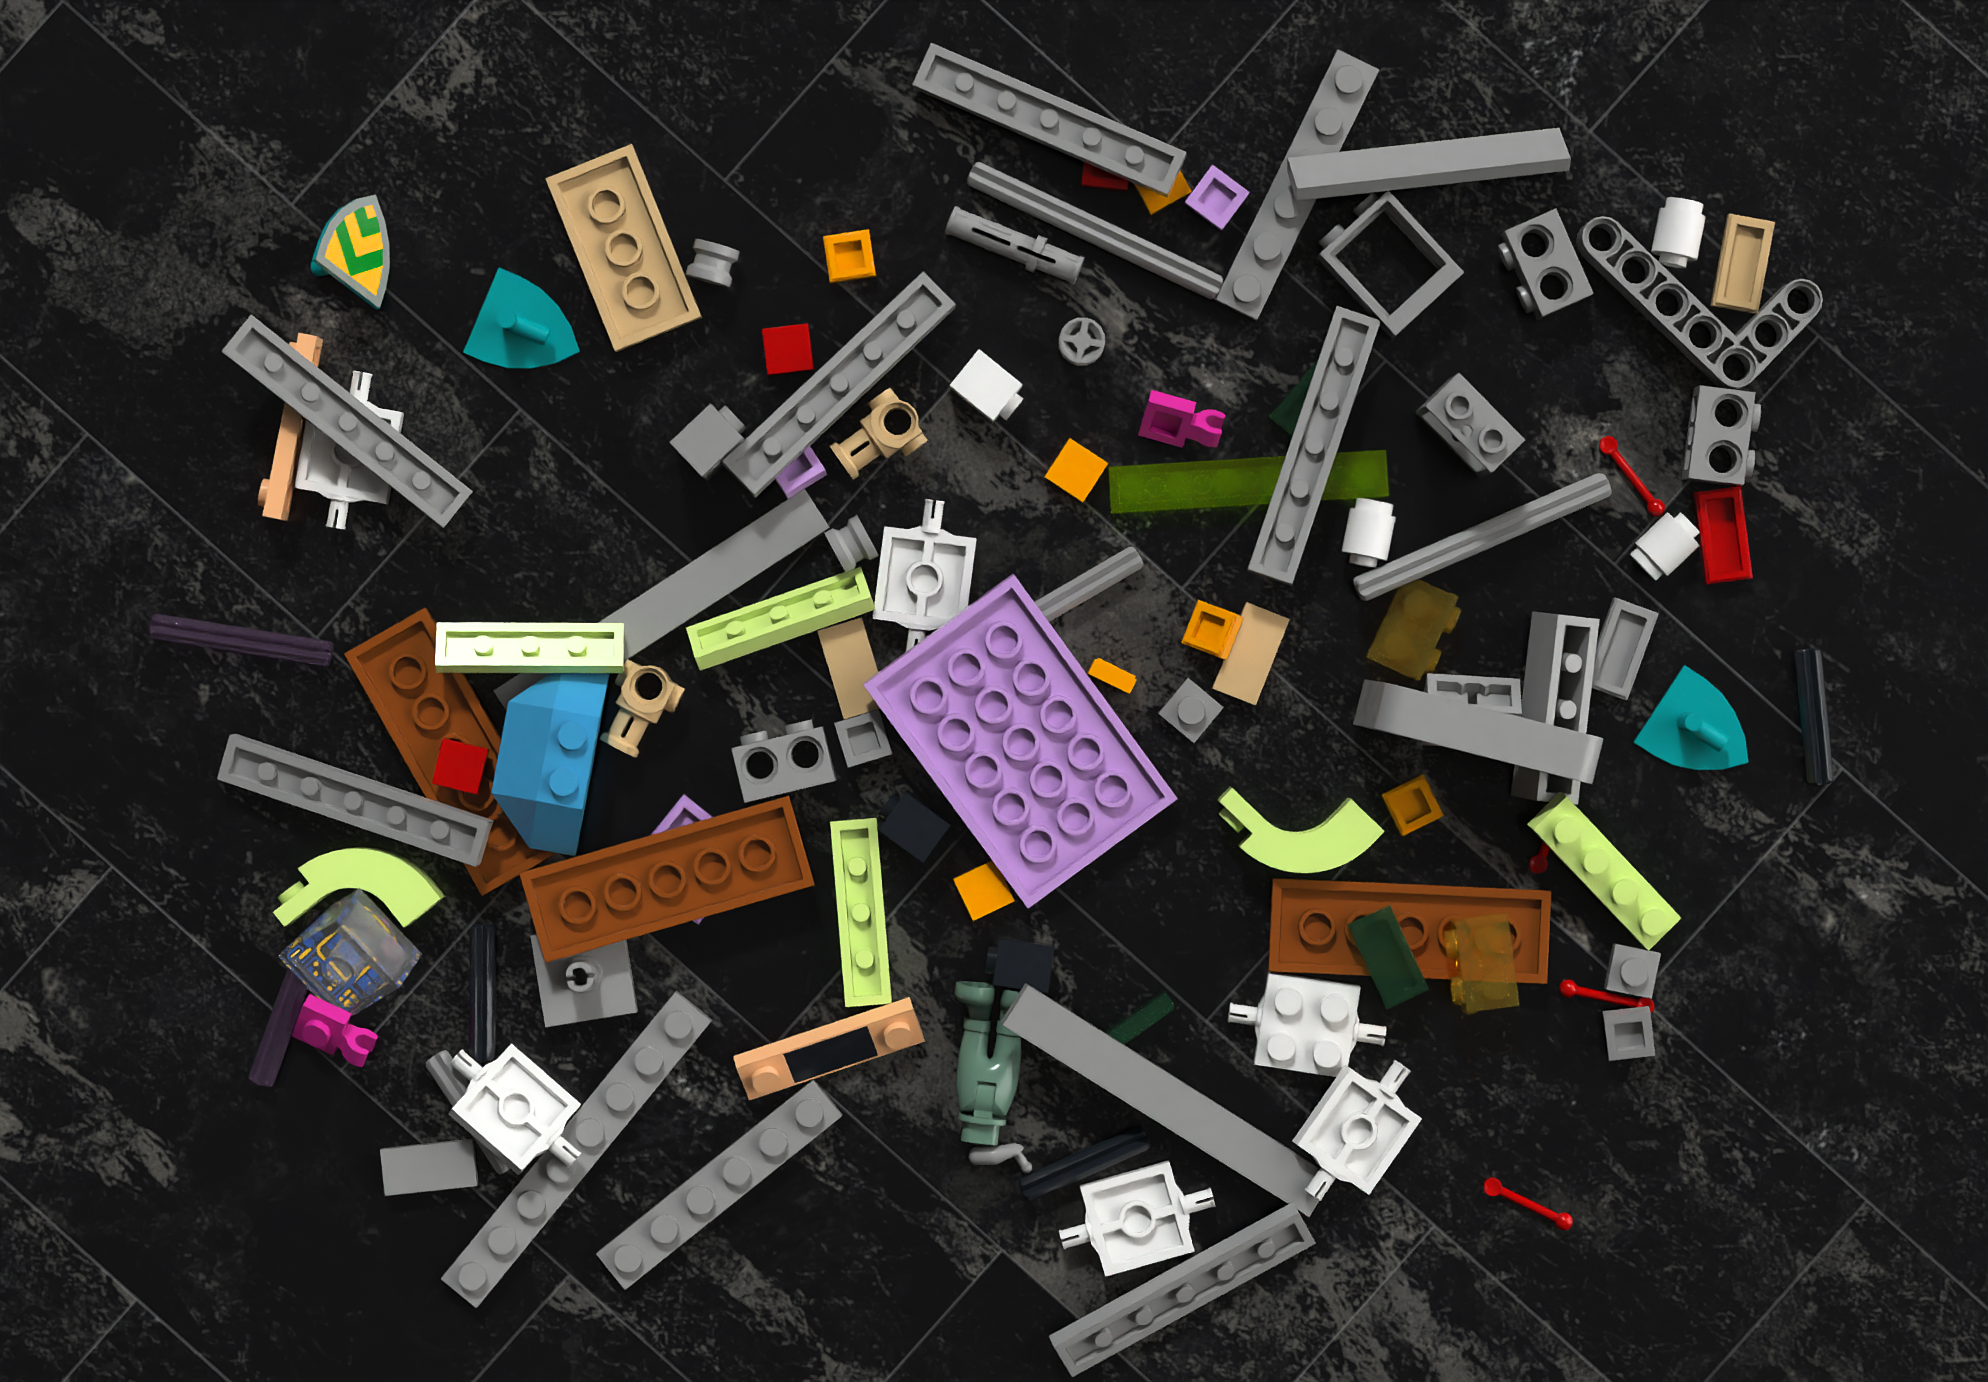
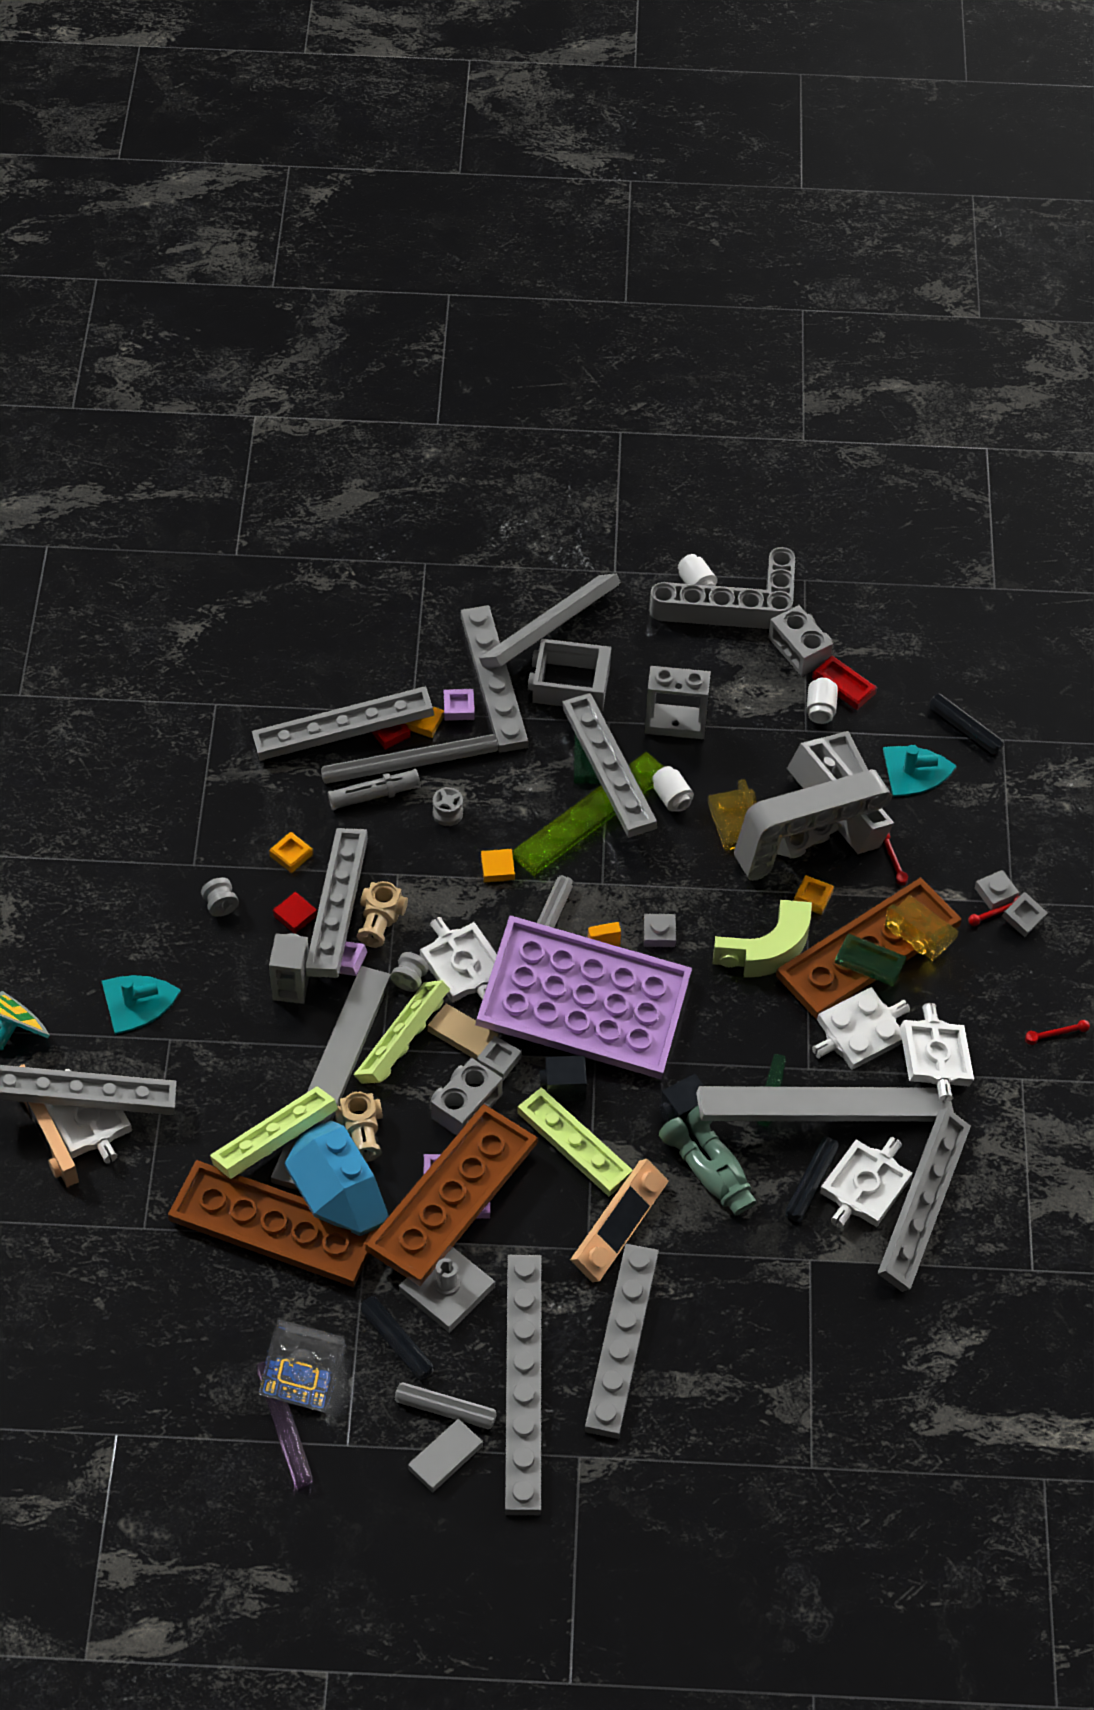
camera: 40 degrees left, 35 degrees down
(241, 639) = (99, 1255): clear purple axle -> none
(328, 1029) = (318, 1419): dark pink plate -> none
(355, 799) = (235, 1281): light grey plate -> none
(385, 874) = (257, 1325): yellowish green arch -> none
(460, 766) = (284, 1220): red tile -> none
(514, 1109) = (469, 1377): white plate -> none
(623, 248) = (165, 923): tan plate -> none
(983, 890) = (631, 1086): light orange tile -> none
(988, 387) = (417, 855): white brick -> none
(996, 1154) = (761, 1209): light grey piece -> none
(1174, 420) = (527, 807): dark pink plate -> none
(1212, 630) = (635, 885): light orange tile -> none
(1251, 654) = (665, 884): tan tile -> none
(1482, 536) = (729, 754): light grey axle -> none
(1557, 260) = (647, 627): light grey brick -> none
(1604, 870) = (937, 845): yellowish green plate -> none
(1608, 446) = (753, 684): red hinge -> none
(1742, 263) = (738, 570): tan tile -> none

